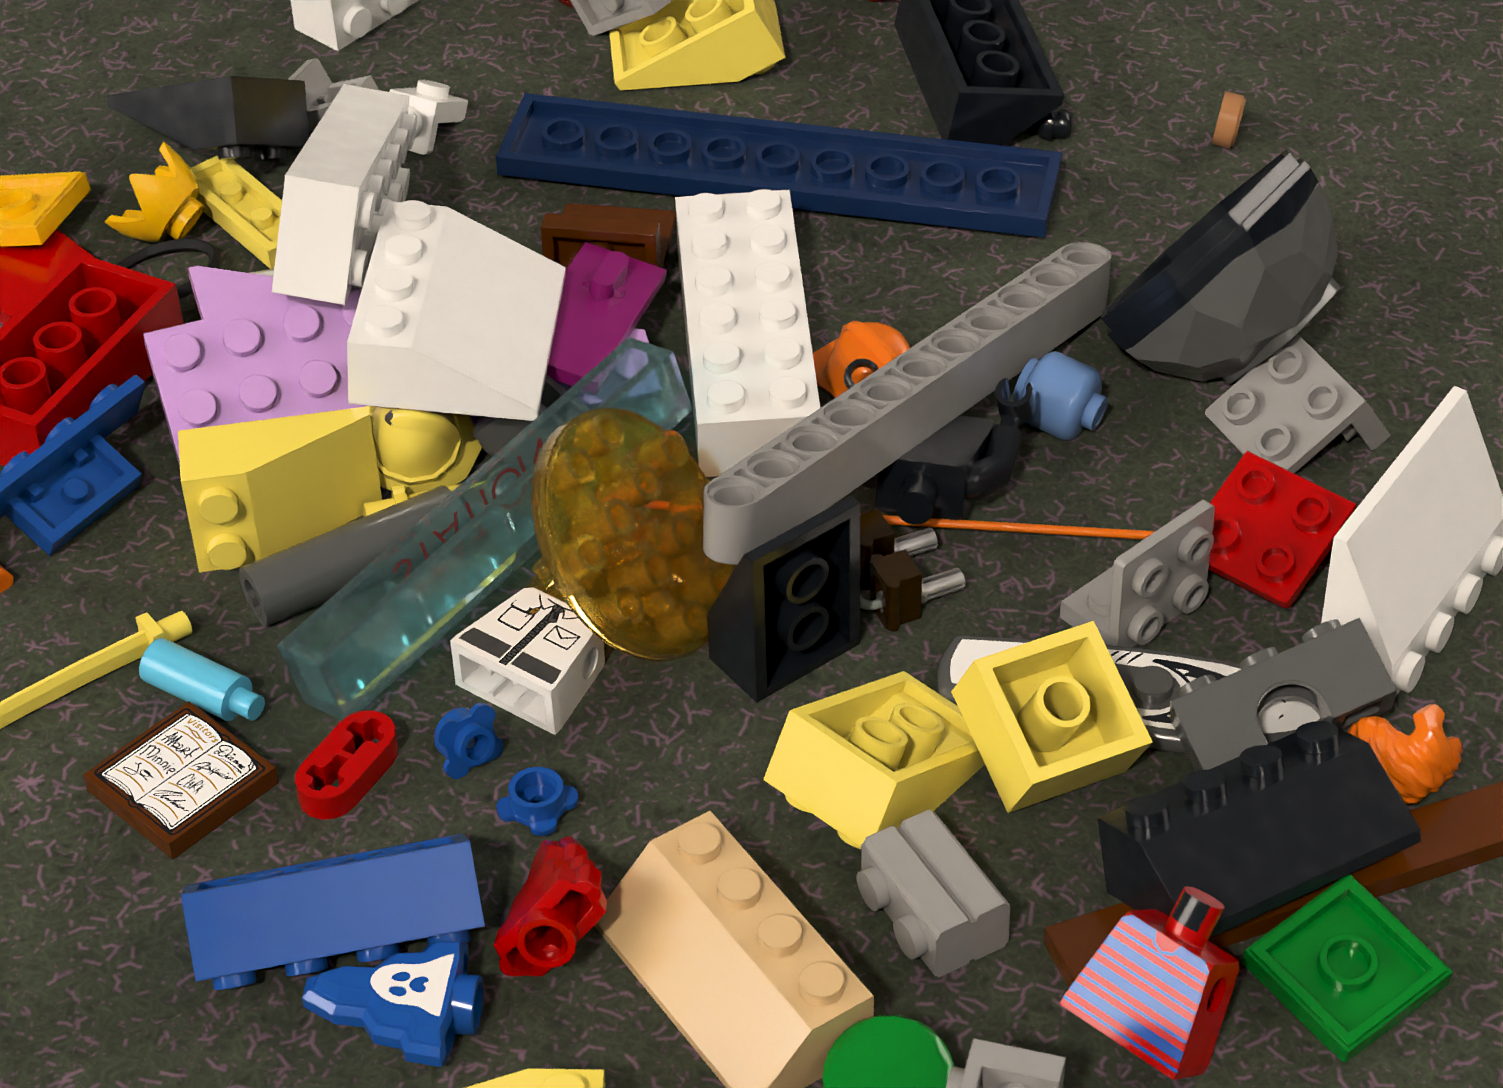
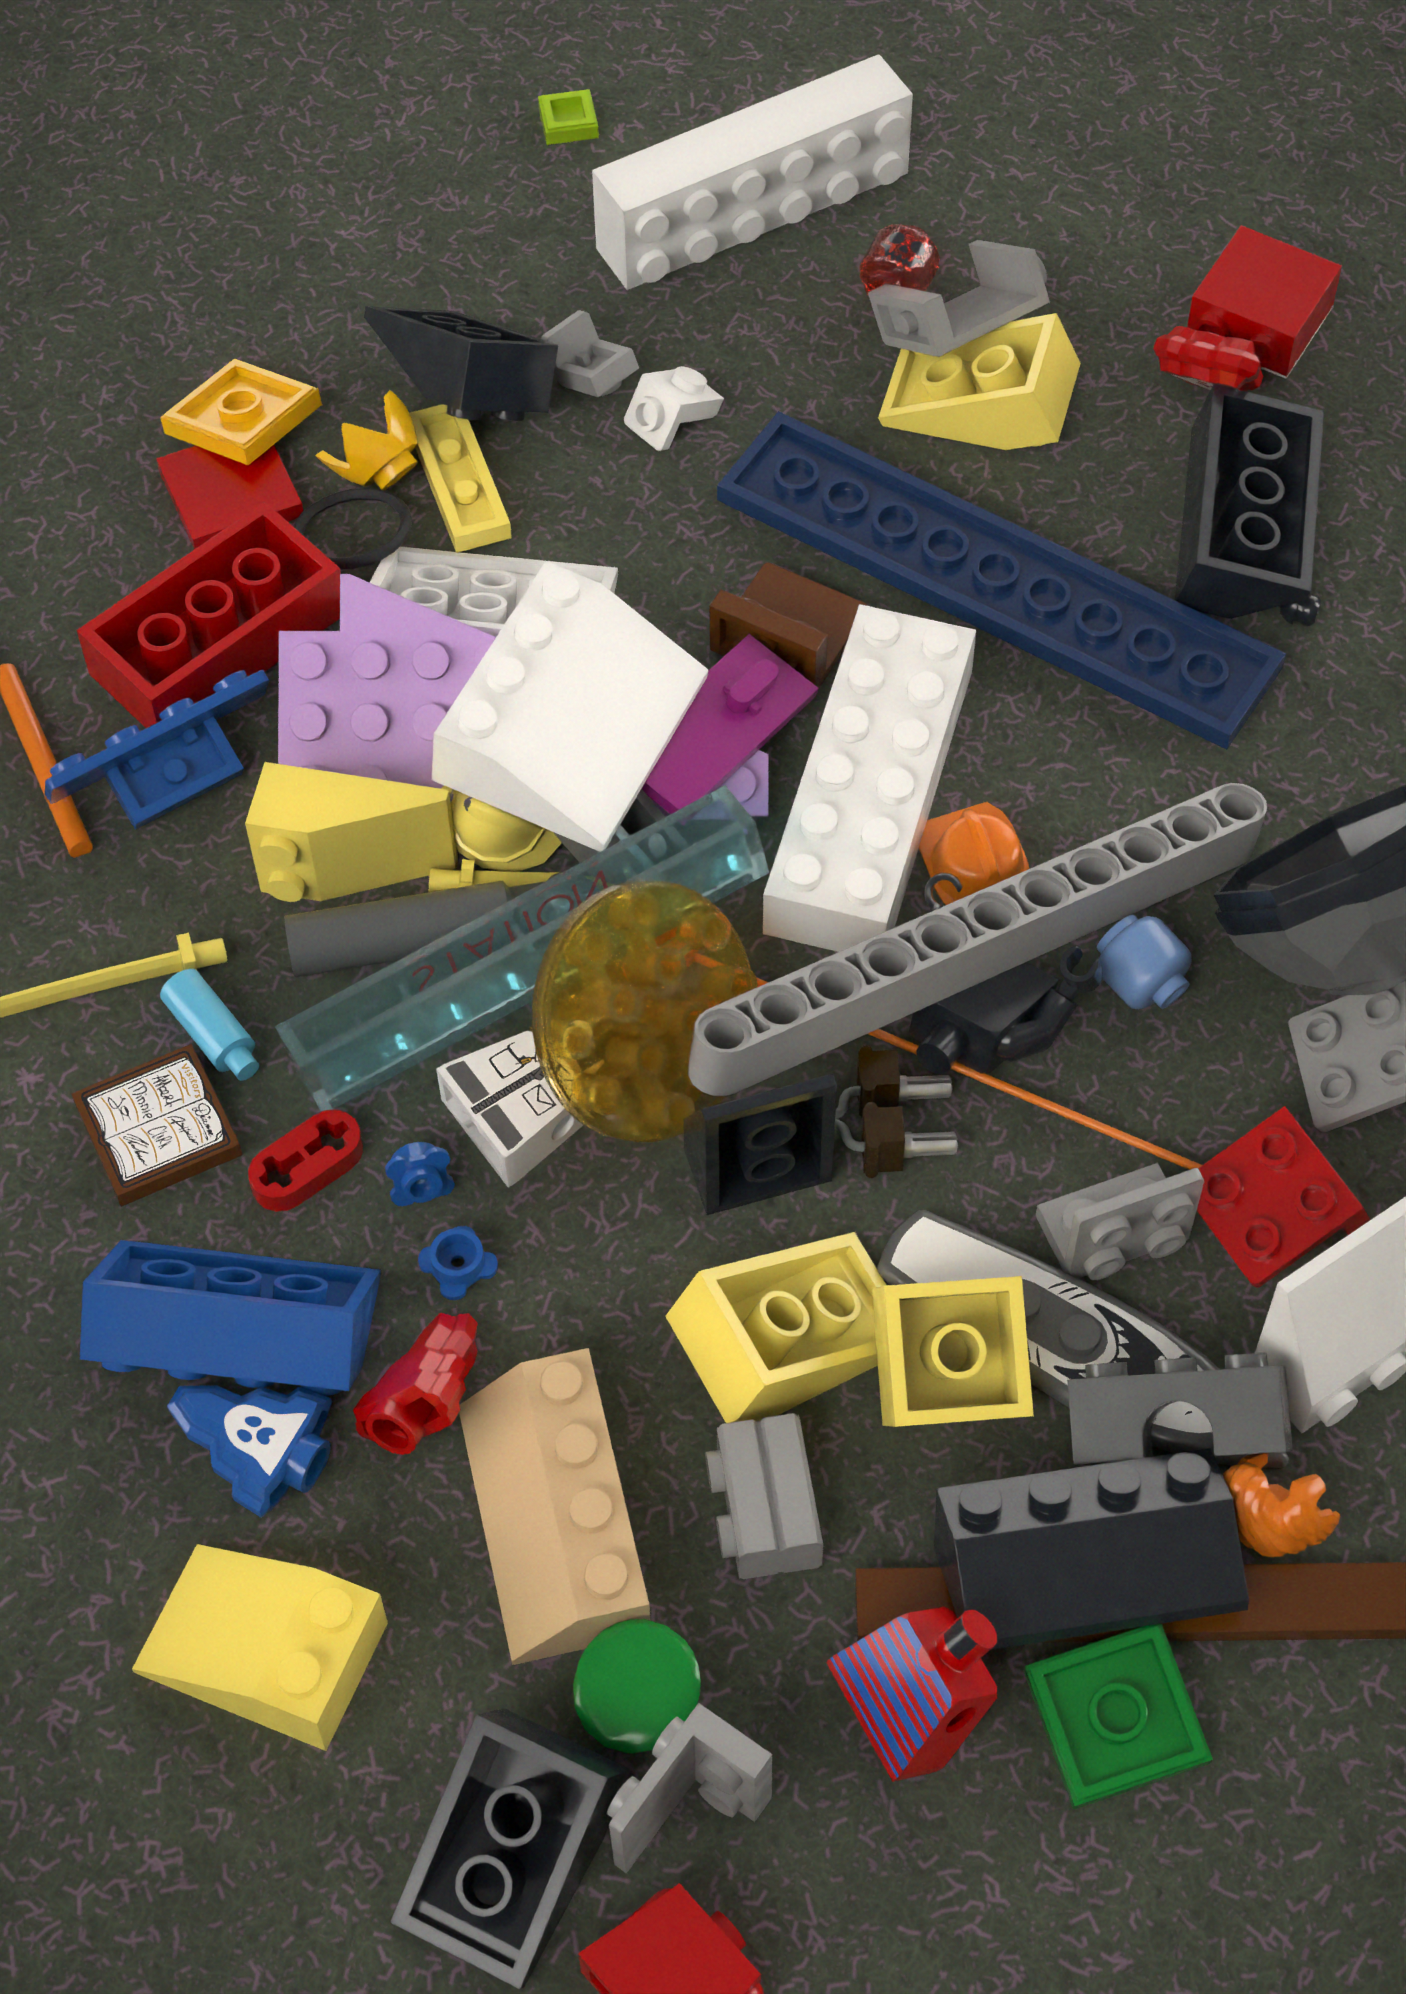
camera: 20 degrees right, 15 degrees up
(340, 193) = (523, 515): white brick -> none

